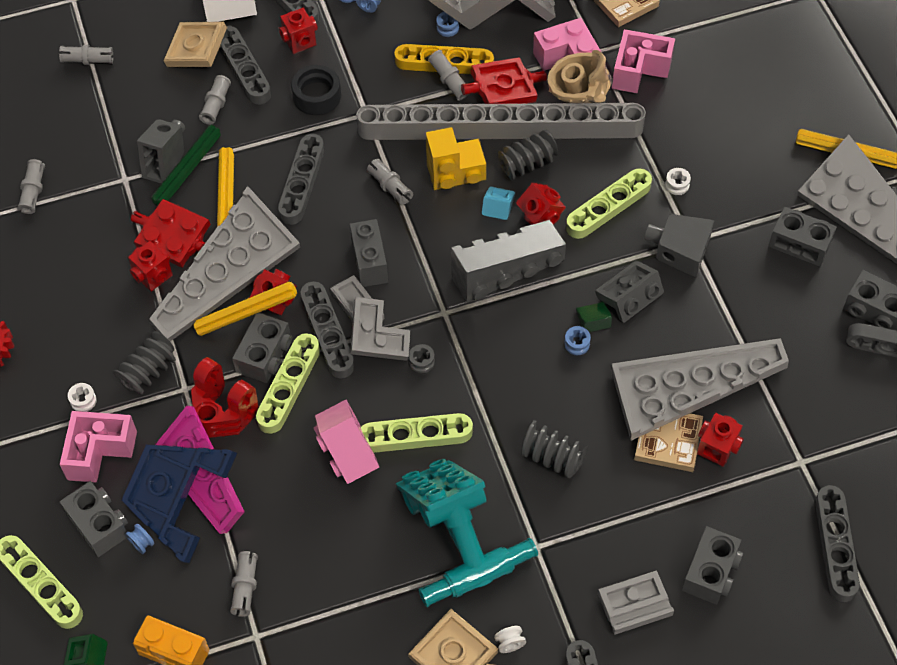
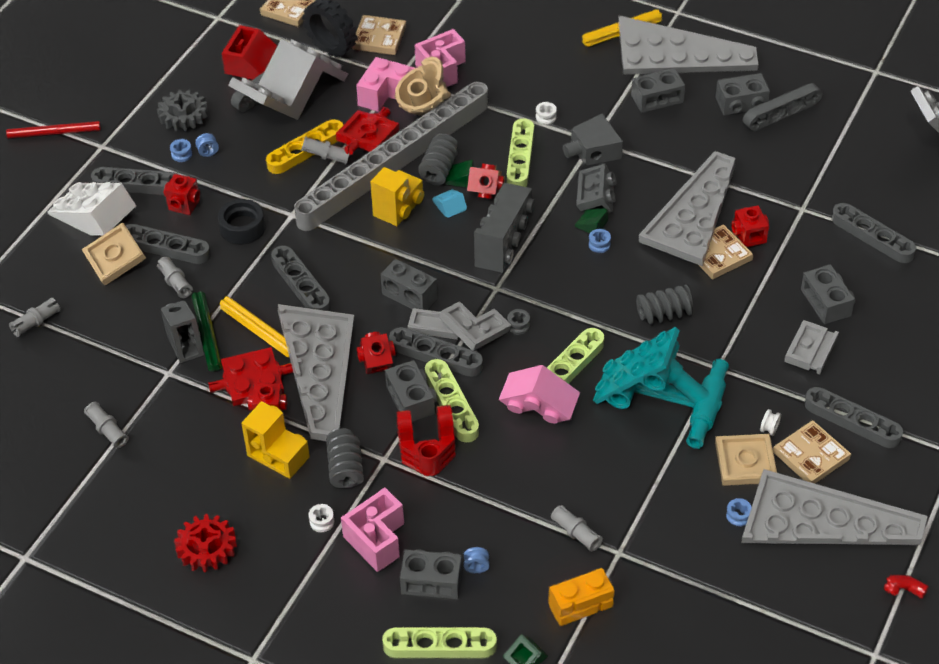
camera: 45 degrees left, 10 degrees down
(114, 302) = (271, 443): none -> yellow brick
(162, 485) = (453, 515): dark blue wing -> none
(209, 491) = (459, 488): dark pink wing -> none
(245, 308) = (374, 374): yellow axle -> none
(389, 181) = (365, 238): light grey pin -> none
(446, 30) = (280, 130): medium blue bush -> none
(537, 176) = (459, 174): none -> dark green slope

